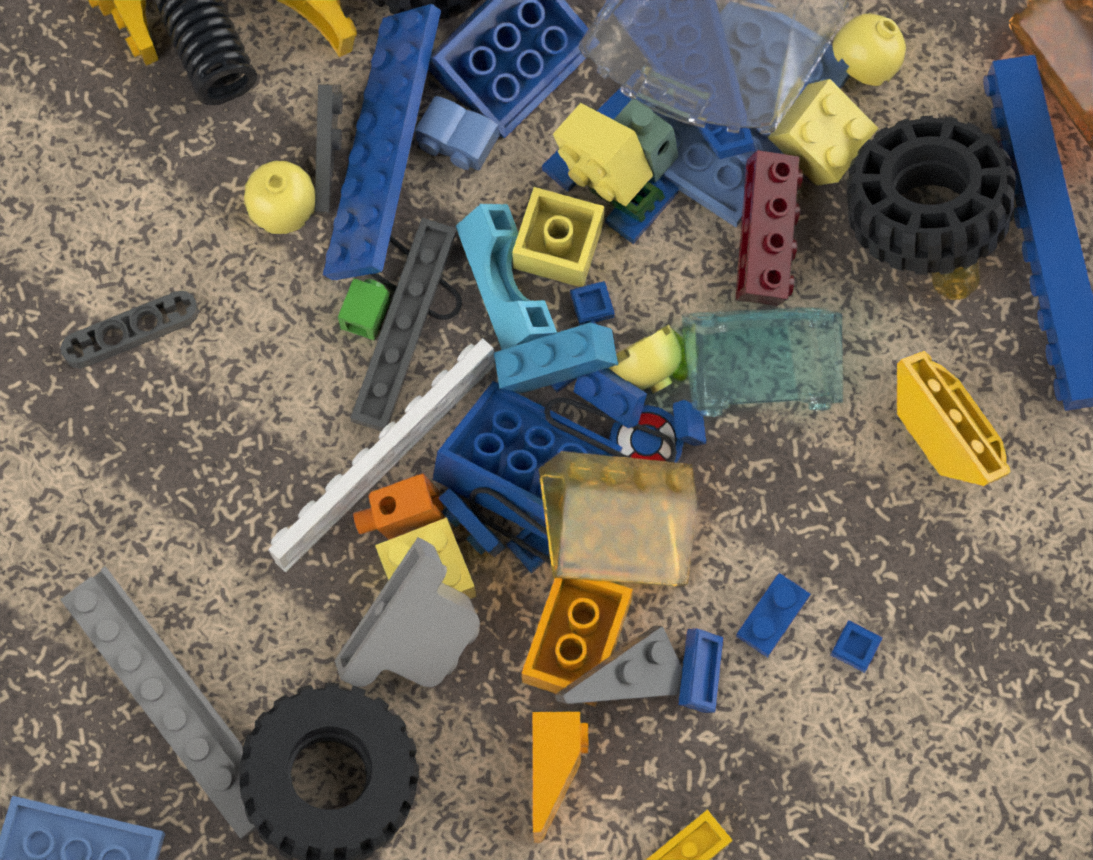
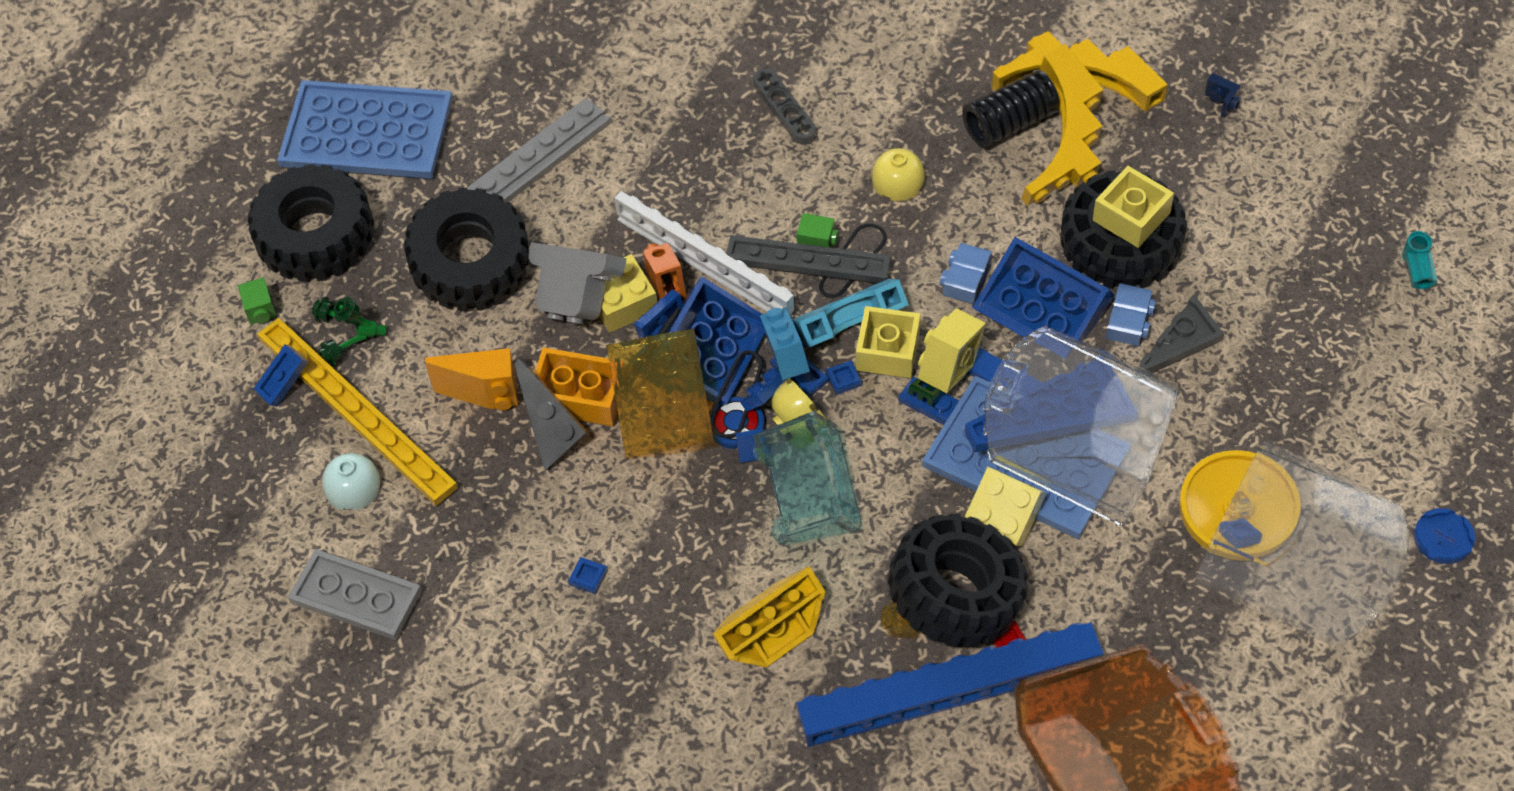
camera: 85 degrees right, 15 degrees down
(328, 140) = (958, 190): dark grey wing -> none
(382, 144) = (941, 223): blue plate -> none
(653, 136) = (975, 372): sand green torso -> none
(701, 670) = (560, 471): blue tile -> none
(768, 228) = (916, 477): dark red brick -> none
(773, 615) = (608, 517): blue plate -> none
(870, 48) = (1088, 538): light yellow cylinder -> none

